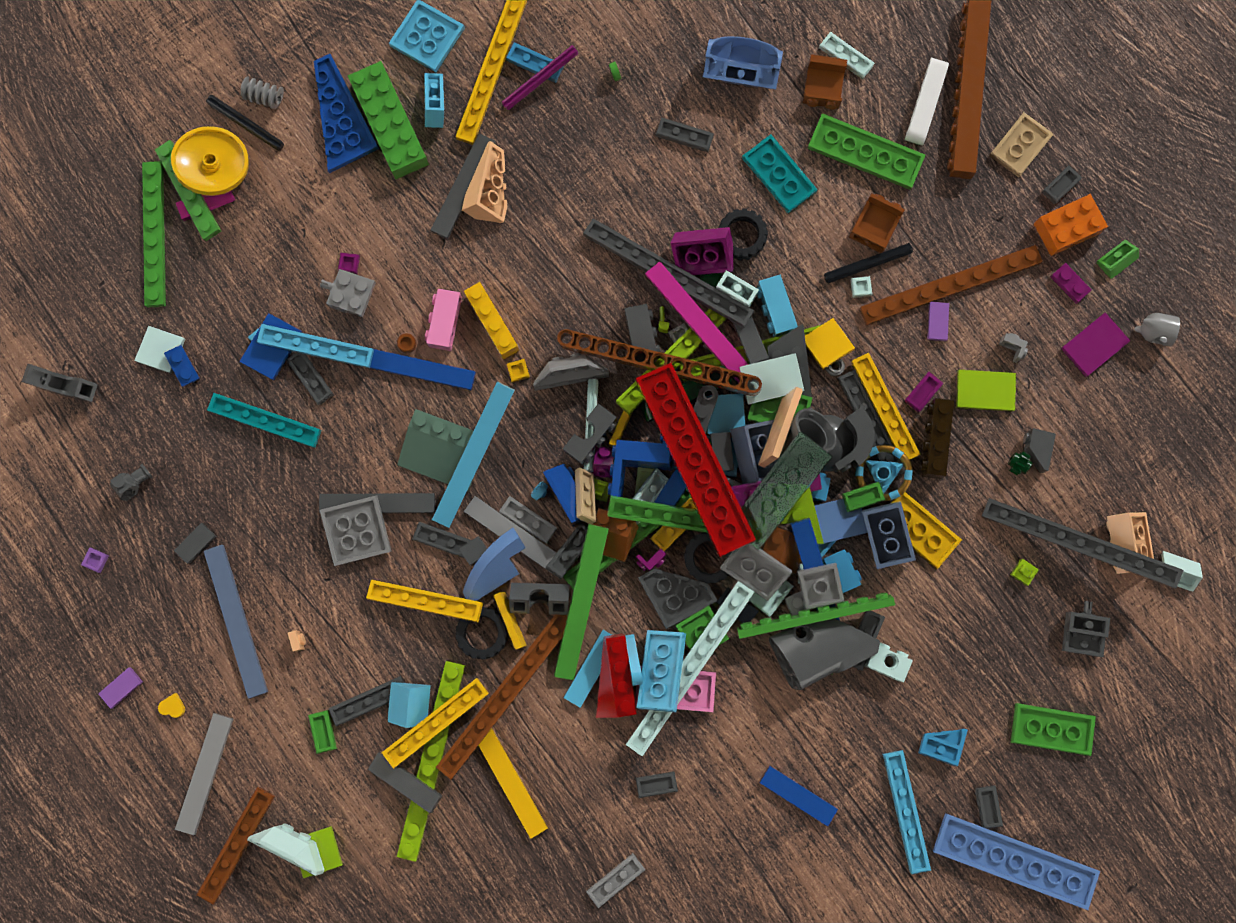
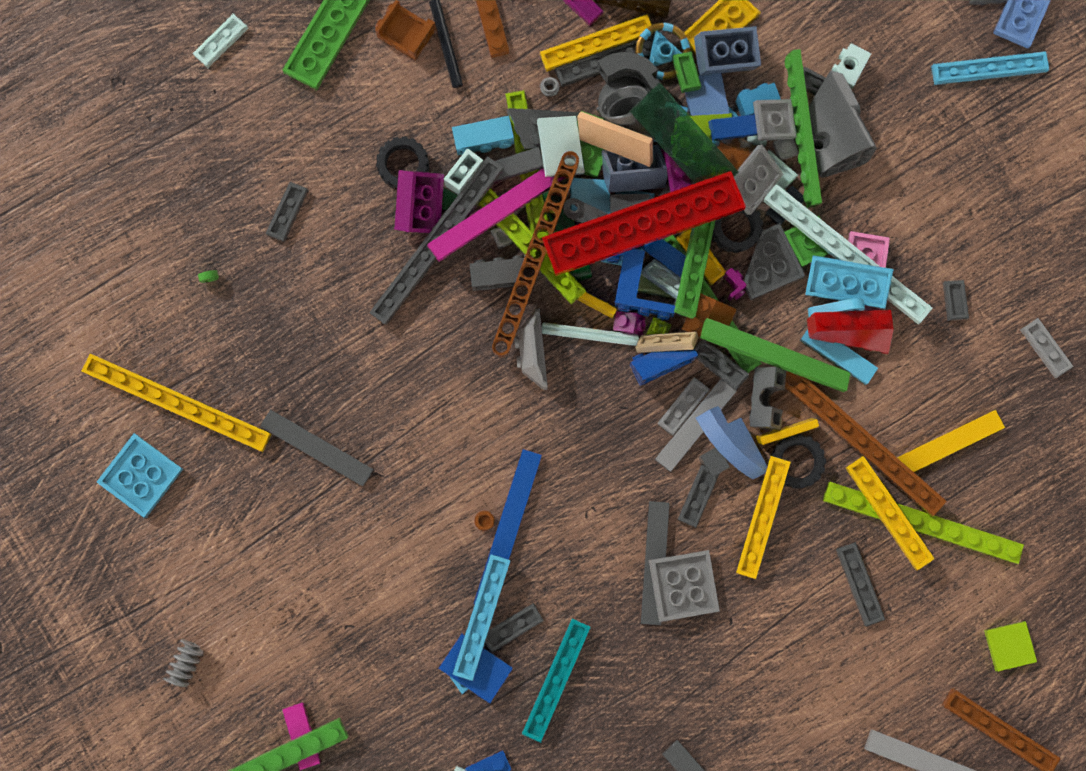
camera: 90 degrees left, 0 degrees up
(209, 160) = (257, 726): yellow dish -> none
(236, 621) = (769, 721): sand blue tile -> none
(244, 122) = (213, 688): black axle -> none
(291, 847) = (1006, 672): light aqua wedge -> none
(297, 640) = (795, 654): light nougat plate -> none
(322, 731) = (889, 634): bright green tile -> none
(343, 126) = (233, 574): blue wing -> none
(349, 262) = (389, 578): magenta tile -> none
(349, 292) = (424, 578): light grey plate -> none
(388, 120) = (232, 523): bright green brick -> none
(406, 783) = (947, 548): dark grey tile -> none
(408, 704) = (867, 541): medium azure slope -> none
(433, 446) = (605, 489): sand green slope -> none
(434, 100) = (216, 471): medium azure slope -> none
(443, 319) = (463, 478): bright pink brick -> none
(473, 454) = (616, 452): medium azure tile -> none
(486, 190) = (328, 424): light nougat wedge -> none
(491, 320) = (470, 427): yellow brick -> none
(518, 370) = (525, 405): yellow tile -> none
(530, 60) = (186, 360): dark azure plate -> none
(539, 491) = (655, 391): medium azure tile -> none
(540, 77) = (206, 354): magenta axle -> none
(582, 449) = (592, 318): dark grey arch -> none
(663, 326) = (492, 252): lime hand -> none
(743, 62) = (218, 139): medium blue piece -> none
(779, 173) = (340, 120): teal tile -> none
(798, 795) = (971, 166): blue tile -> none
(824, 82) = (247, 65): dark orange panel -> none
(828, 343) = (528, 88): yellow tile -> none
(861, 287) = (469, 53): light aqua tile -> none
(944, 746) = (930, 25): dark azure wing -> none

